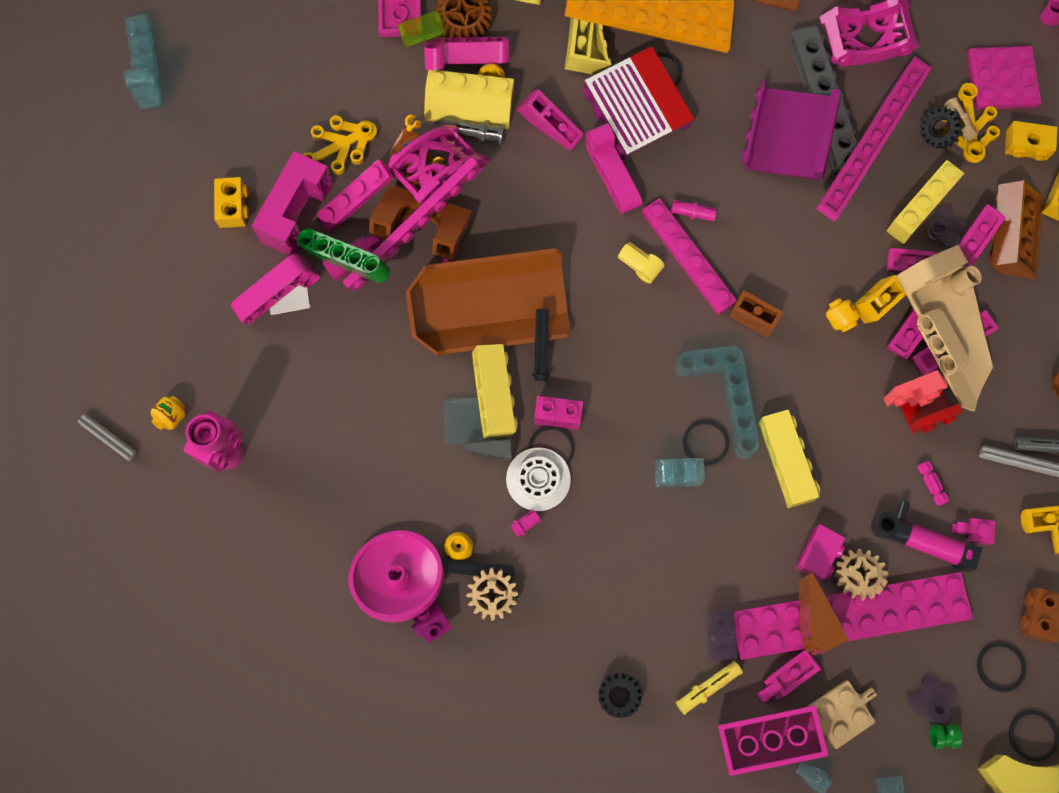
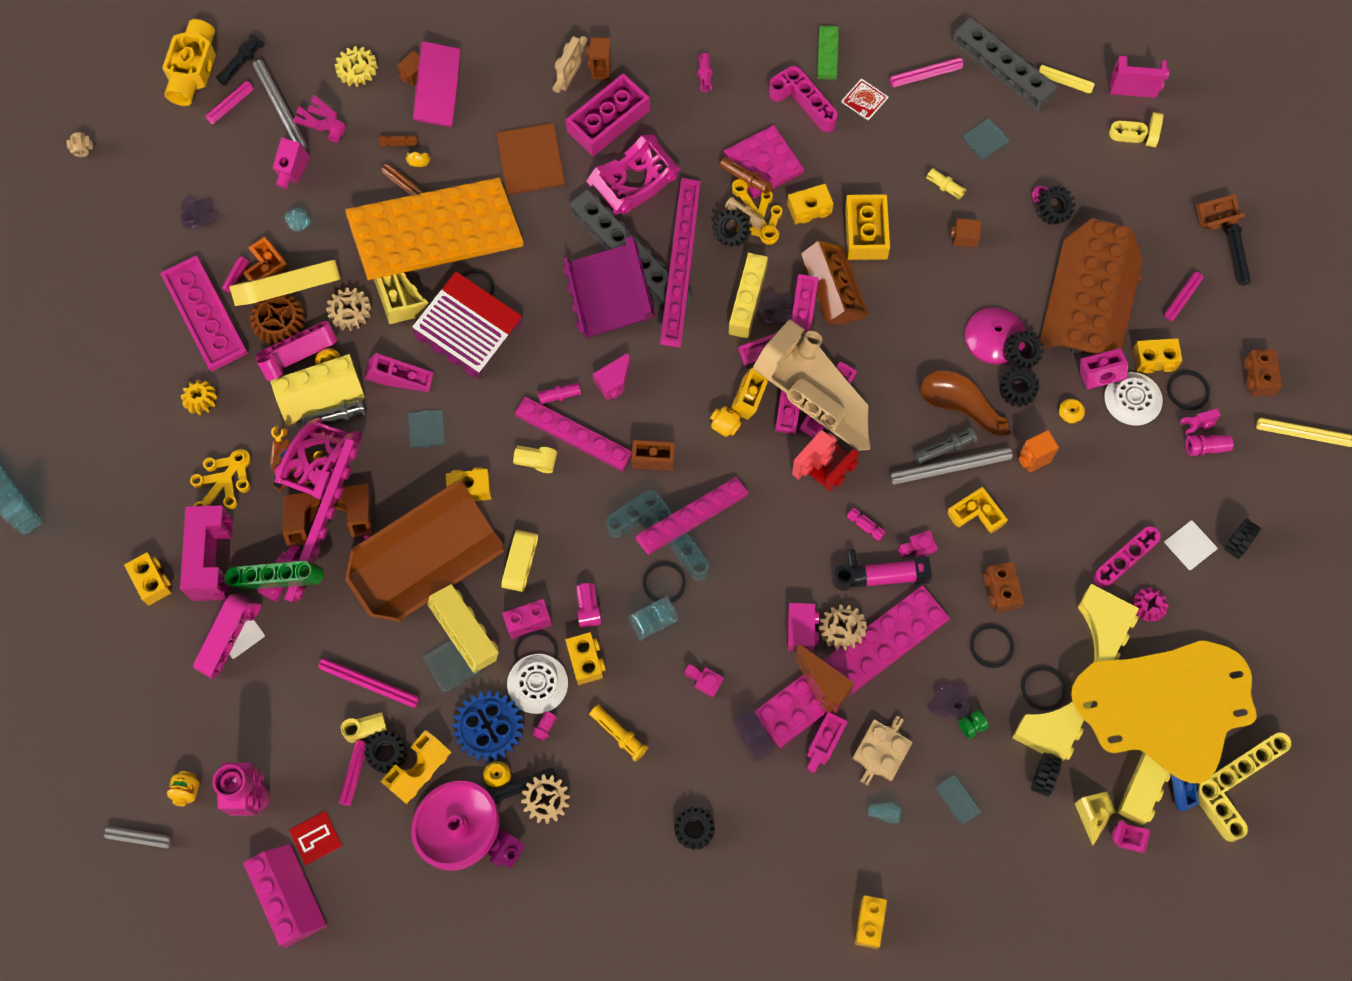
camera: 25 degrees left, 5 degrees down
(210, 559) = (285, 895): none -> dark pink slope
(264, 519) = (315, 838): none -> red sticker
(327, 477) = (353, 773): none -> dark pink axle
(355, 195) = (258, 519): dark pink plate -> none
(357, 55) = (199, 397): none -> yellow gear
(359, 440) = (366, 726): none -> light yellow piece
(366, 458) = (373, 746): none -> black tyre
(372, 512) = (430, 756): none -> yellow arch
(382, 399) = (369, 682): none -> dark pink axle
(421, 29) = (245, 348): clear neon green hinge -> none
(451, 498) = (505, 717): none -> blue gear
(494, 449) = (488, 676): dark grey slope -> none
(533, 37) = (348, 317): none -> tan gear
(541, 345) = (484, 569): black axle -> none
(551, 184) = (426, 429): none -> clear light blue piece
(578, 353) = (519, 560): none -> light yellow beam
(580, 255) = (481, 482): none -> yellow brick
(590, 477) = (581, 659): none -> yellow brick
(596, 575) = (625, 739): none -> yellow pin
(611, 168) = (456, 379): dark pink beam -> none
(620, 434) = (588, 610): none -> dark pink piece
(686, 703) = (760, 792): light yellow pin -> none
(701, 558) = (707, 681): none -> dark pink plate
(752, 220) = (613, 377): none -> dark pink slope
(765, 391) = (691, 516): none -> dark pink plate
(773, 740) = (835, 798): dark pink brick -> none
(789, 459) = (739, 562): light yellow brick -> none
(985, 88) = (751, 178): none -> dark orange pin

